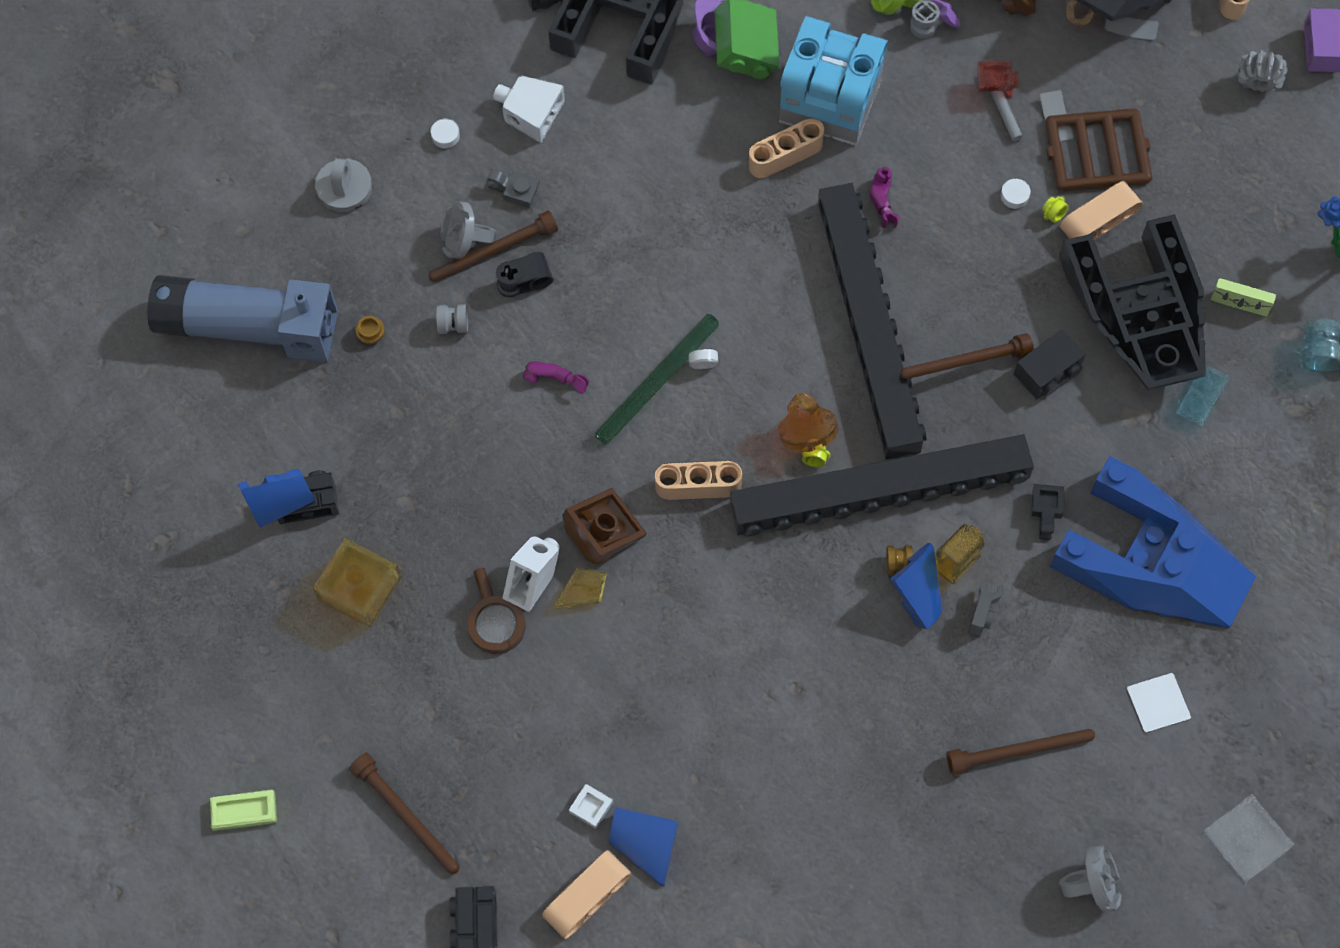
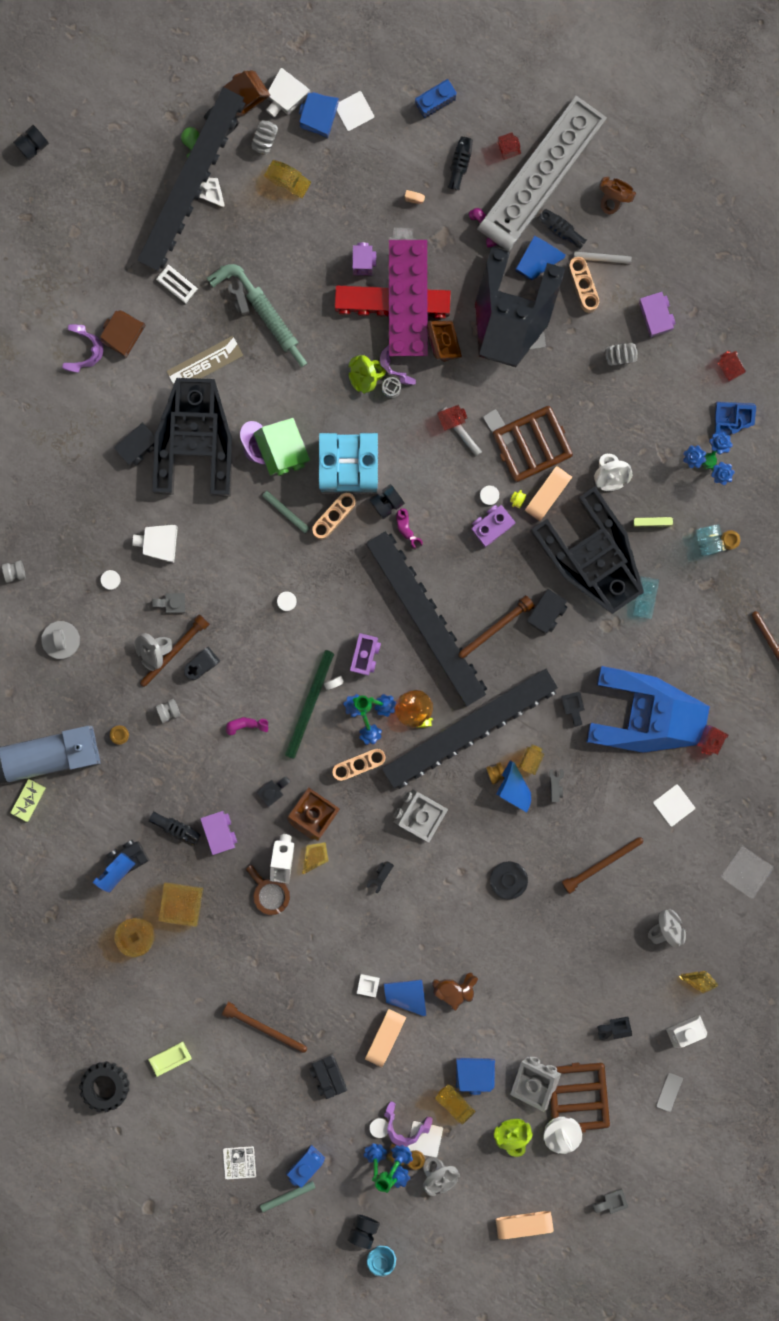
camera: 15 degrees left, 20 degrees up
(108, 794) = (92, 1098): none -> black tyre
(203, 374) = (28, 800): none -> yellowish green tile
(277, 592) = (125, 941): none -> clear yellow brick
(318, 79) = (13, 571): none -> light grey wheel
(394, 479) = (175, 828): none -> black hinge
(455, 502) = (218, 832): none -> medium lavender brick
(556, 479) = (272, 792): none -> black plate
(678, 236) = (286, 601): none -> white tile
(678, 644) = (383, 872): none -> black plate
(719, 861) = (454, 993): none -> reddish brown animal
(721, 126) = (286, 512): none -> sand green bar
(725, 401) = (361, 705): none -> blue plant
(762, 332) = (364, 654): none -> medium lavender brick
(763, 580) = (419, 815): none -> light grey plate
(865, 724) = (509, 880): none -> black tile
(867, 151) = (393, 499): none -> black wheel
(1007, 229) = (493, 525): none -> medium lavender brick
(1204, 214) = (612, 474): none -> white tile
(1255, 613) = (708, 735): none -> clear red brick

